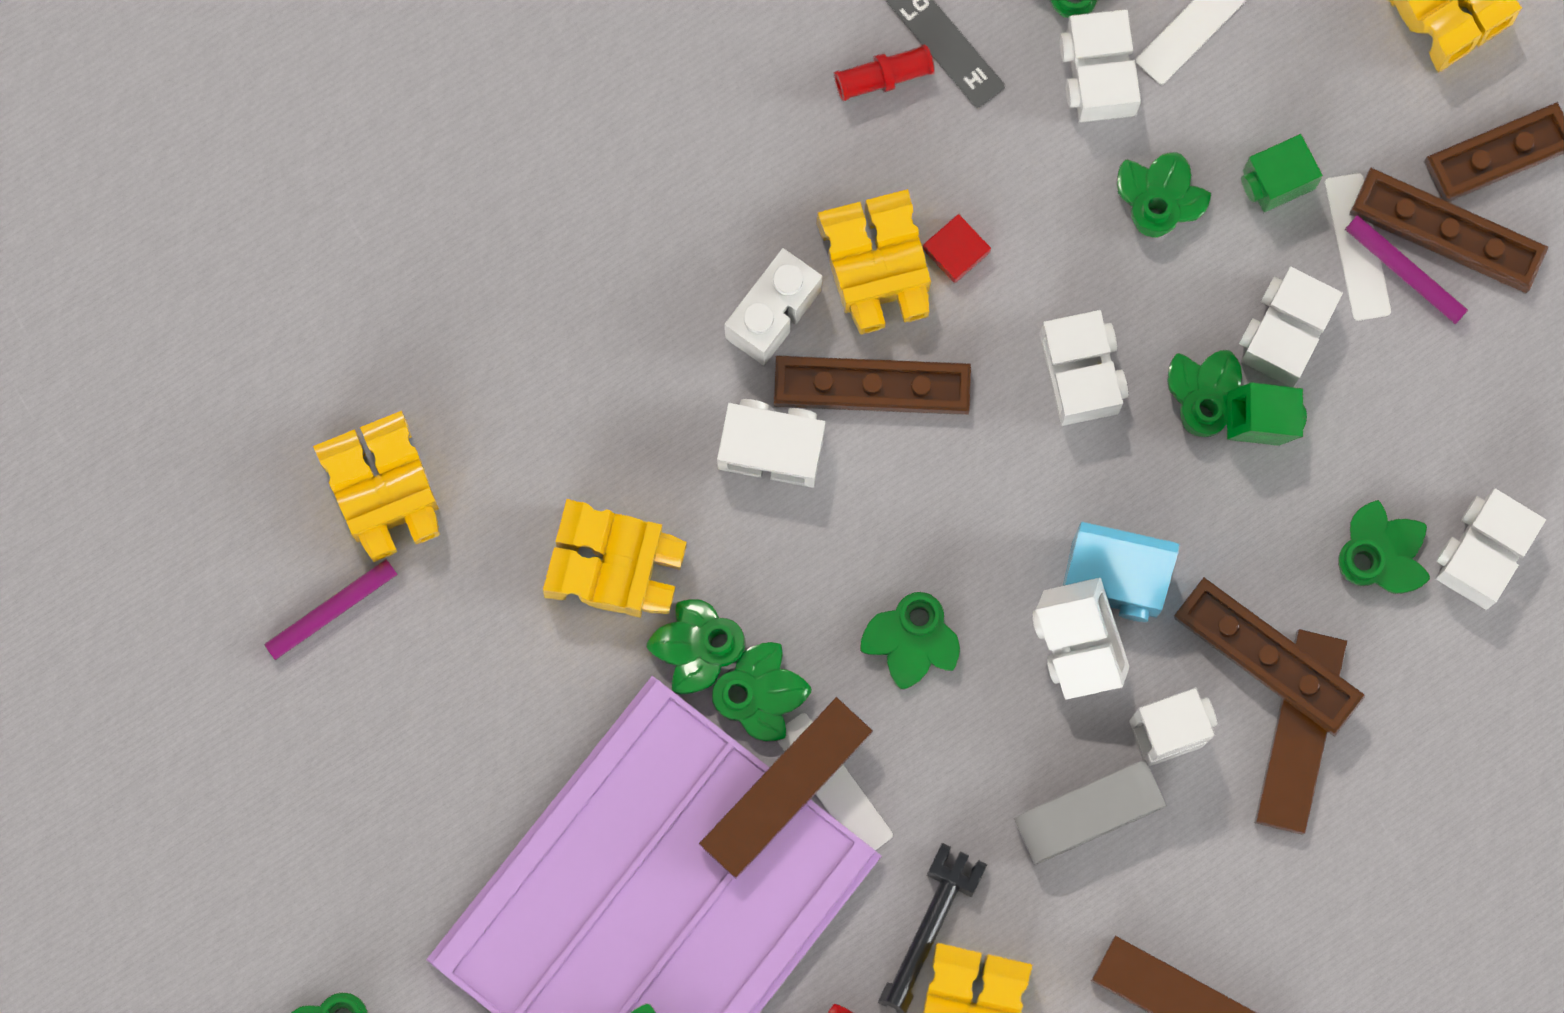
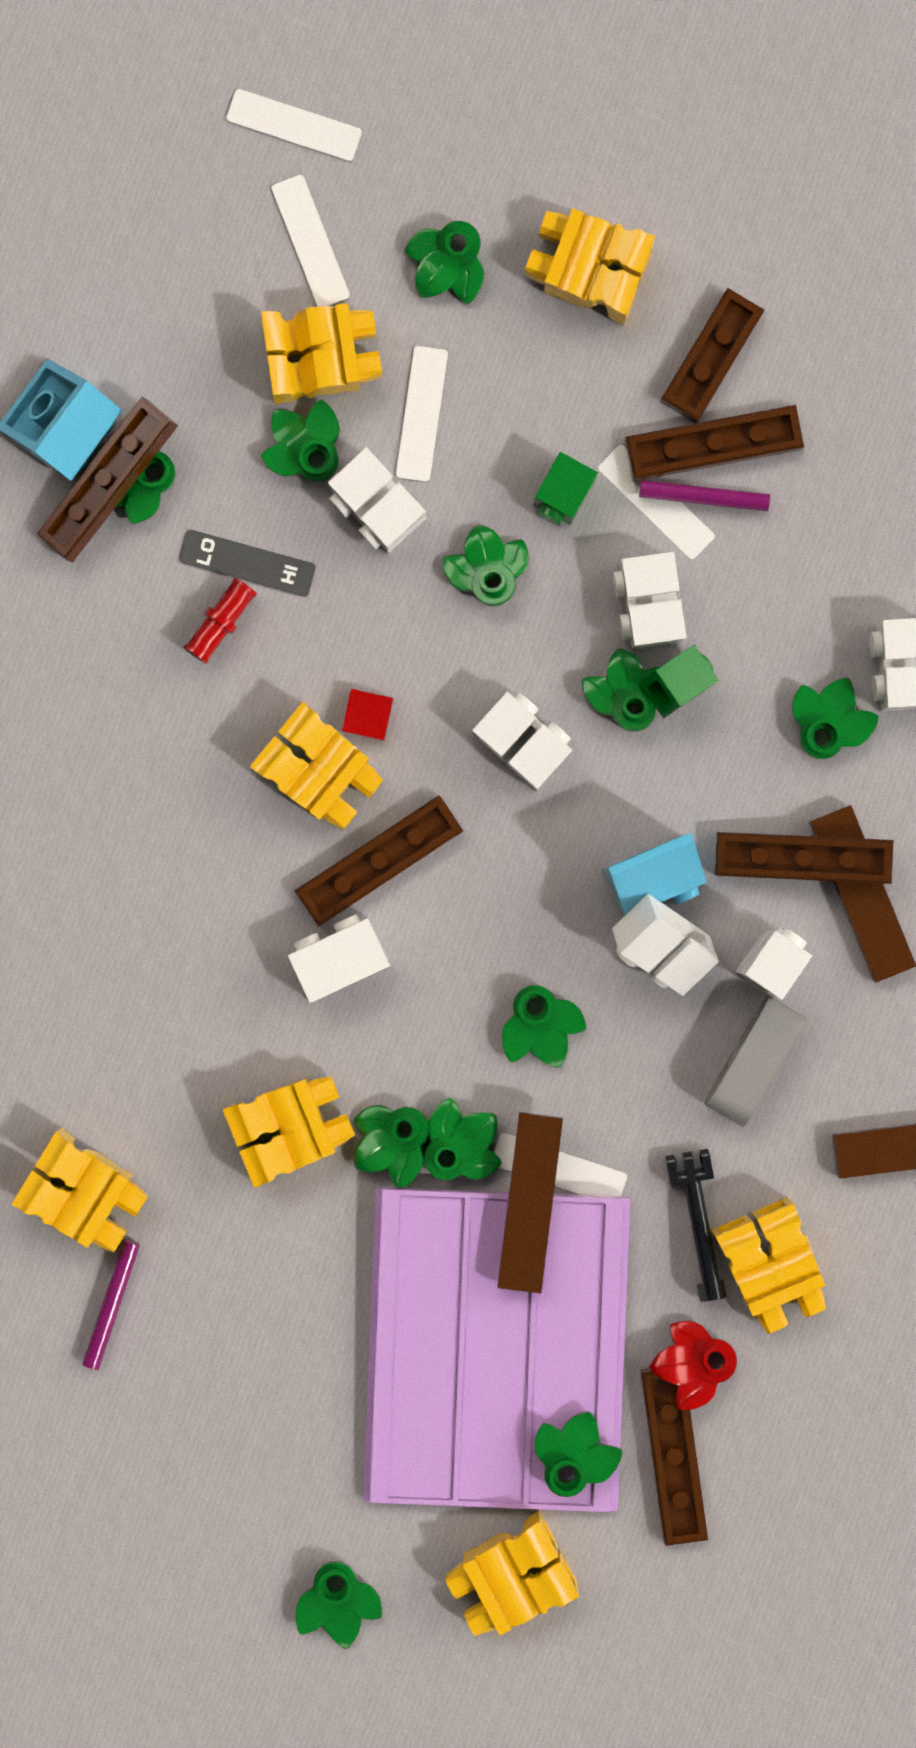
camera: 35 degrees left, 10 degrees up
(759, 320) = (263, 874): white piece -> none

